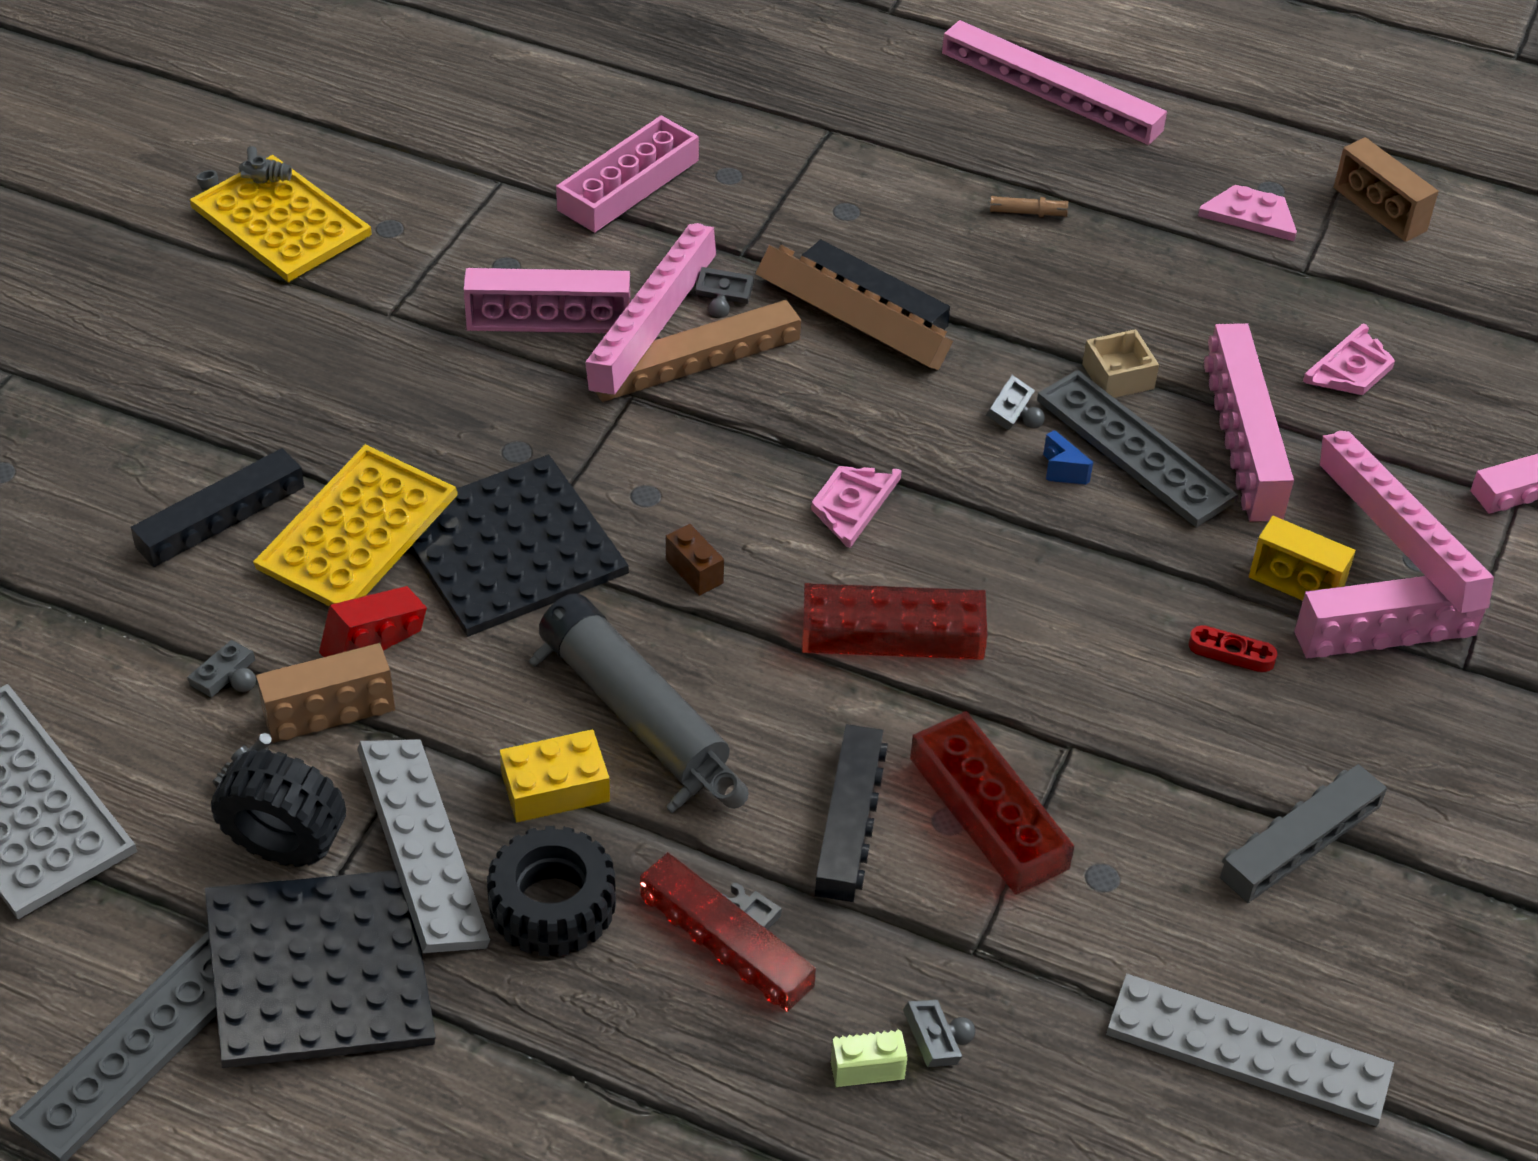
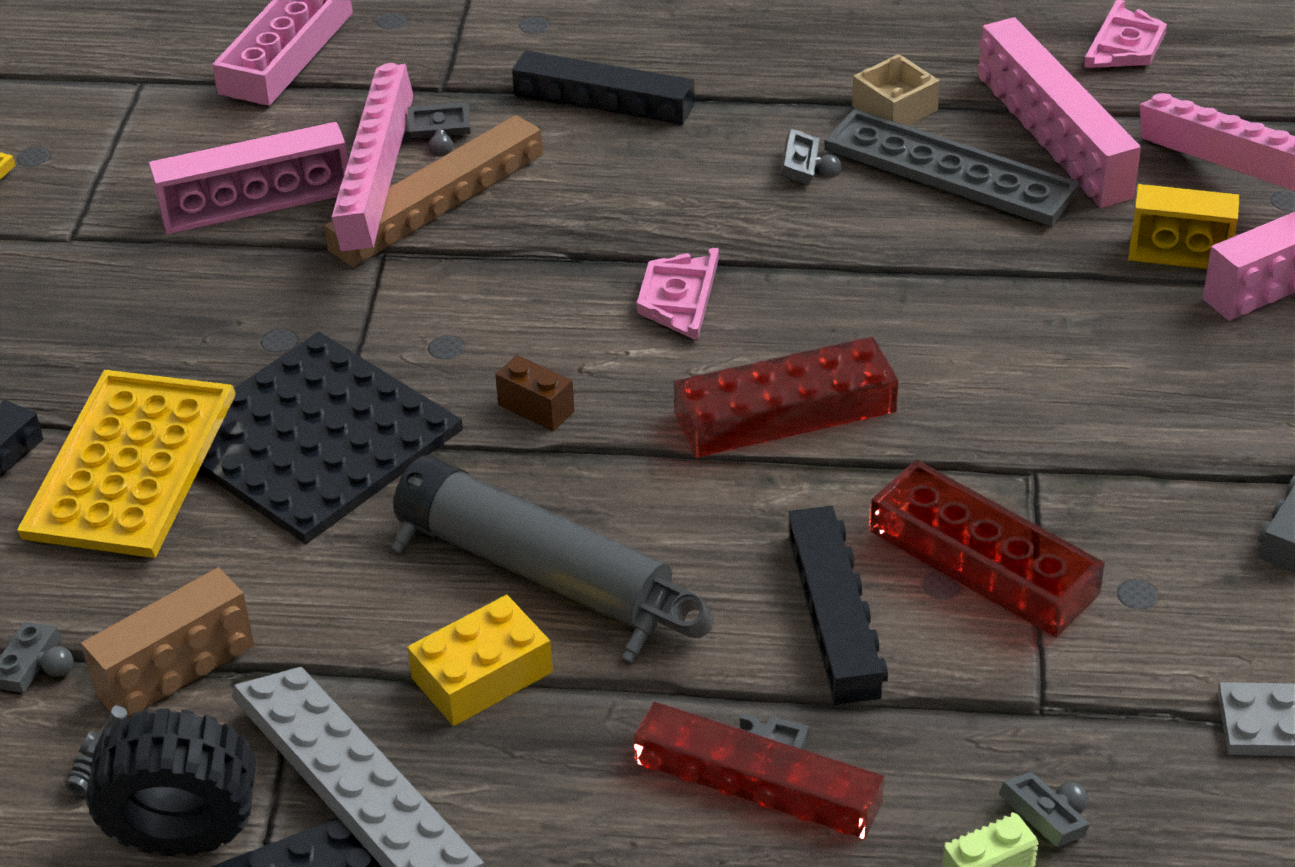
camera: 15 degrees left, 5 degrees down
(372, 620) = (190, 551): red wedge -> none
(551, 925) = (543, 824): black tyre -> none
(855, 307) = (591, 105): medium nougat brick -> none
(1065, 461) = (888, 196): blue slope -> none
(1210, 650) = (1183, 327): red beam -> none

